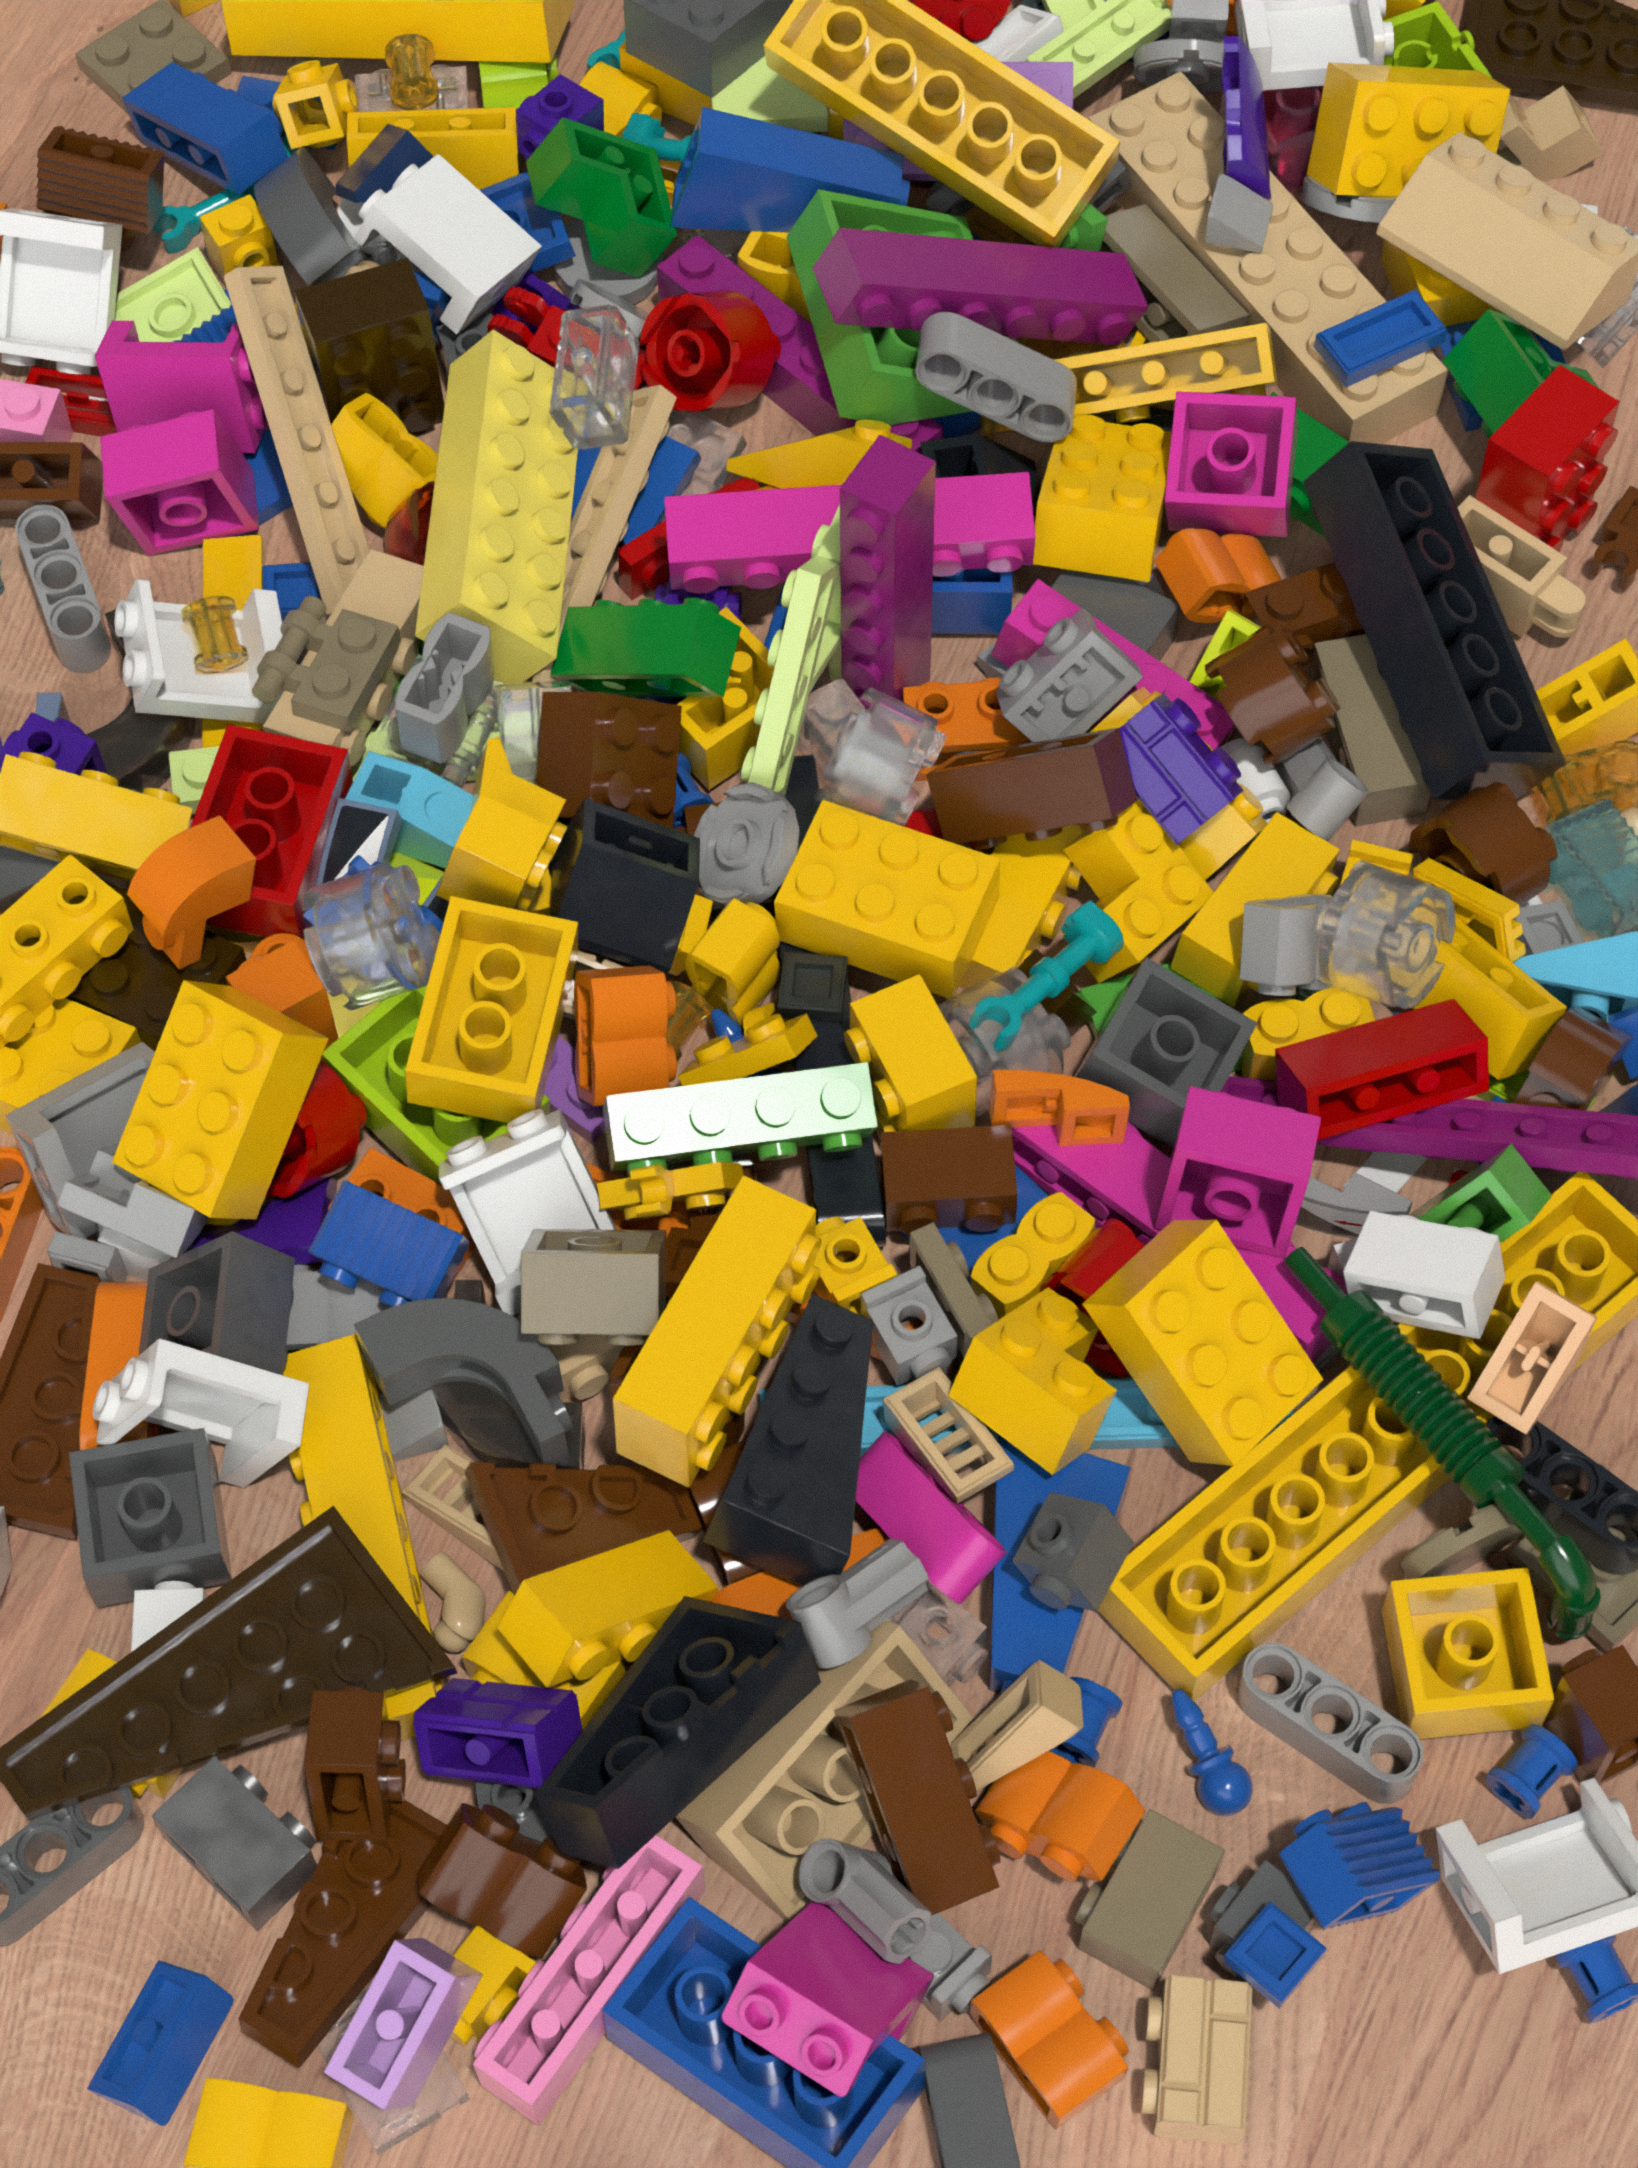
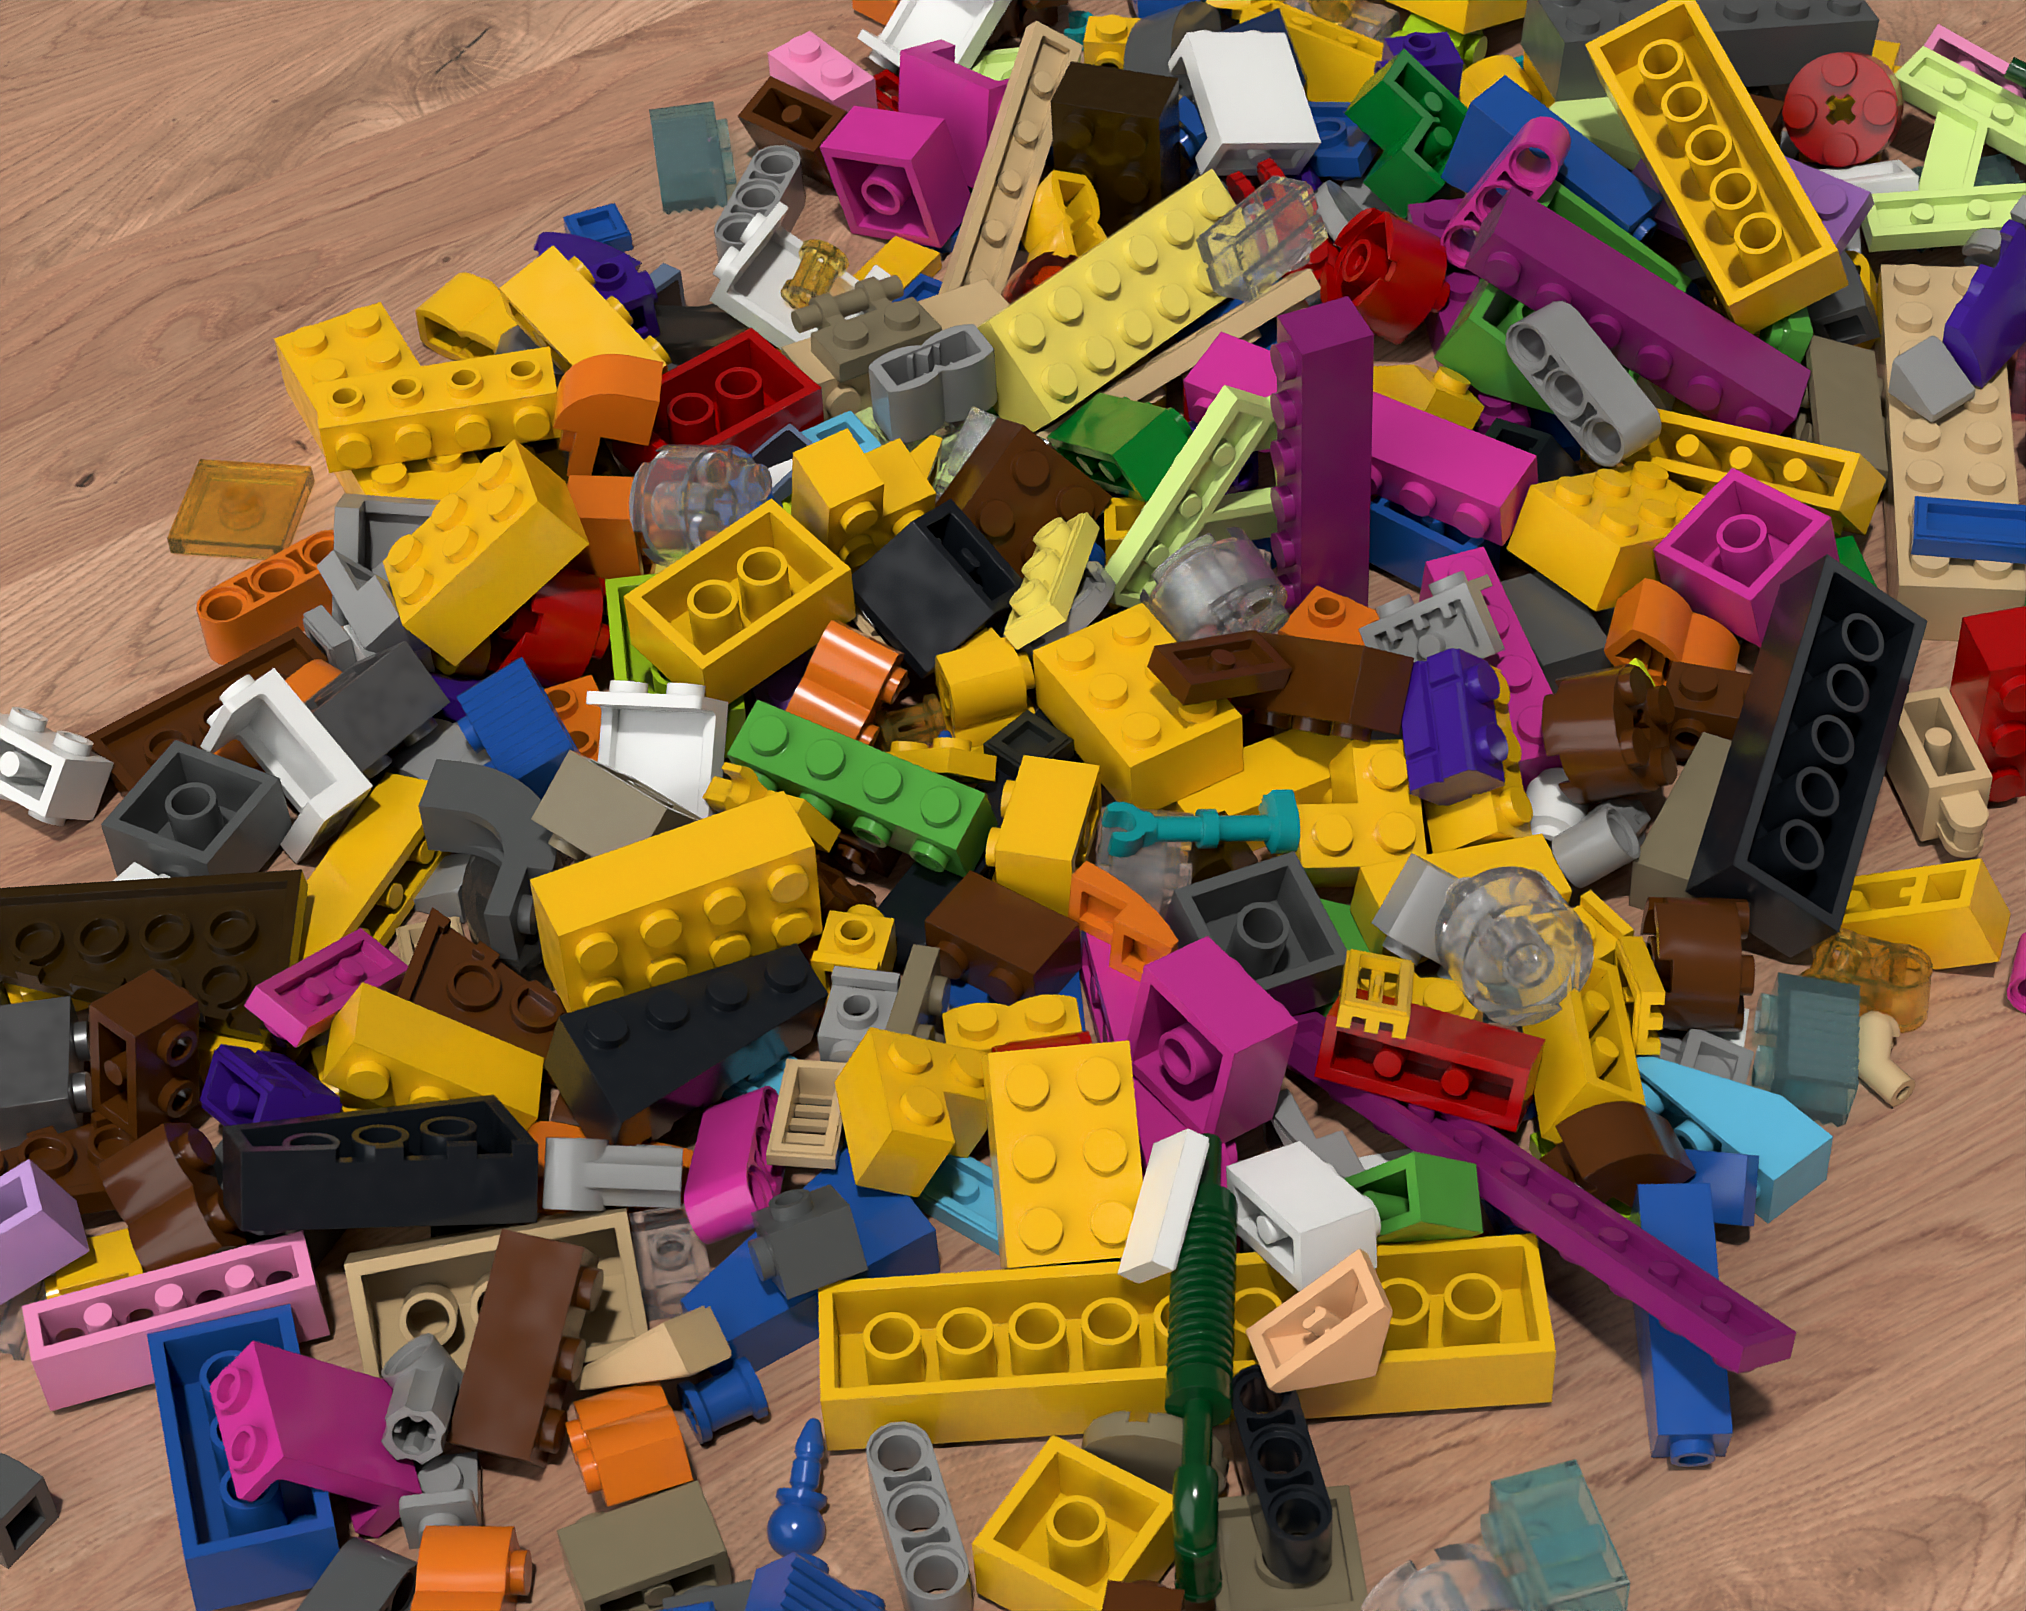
camera: 40 degrees right, 15 degrees down
(455, 1598) = (312, 992): none -> dark pink plate
(724, 822) = (1051, 578): none -> light yellow tile
(785, 223) = (1514, 168): none -> dark pink beam
(962, 829) = (1219, 667): none -> reddish brown plate
(1307, 1048) = (1373, 1009): none -> yellow tile
(1330, 1338) = (1164, 1206): none -> white tile

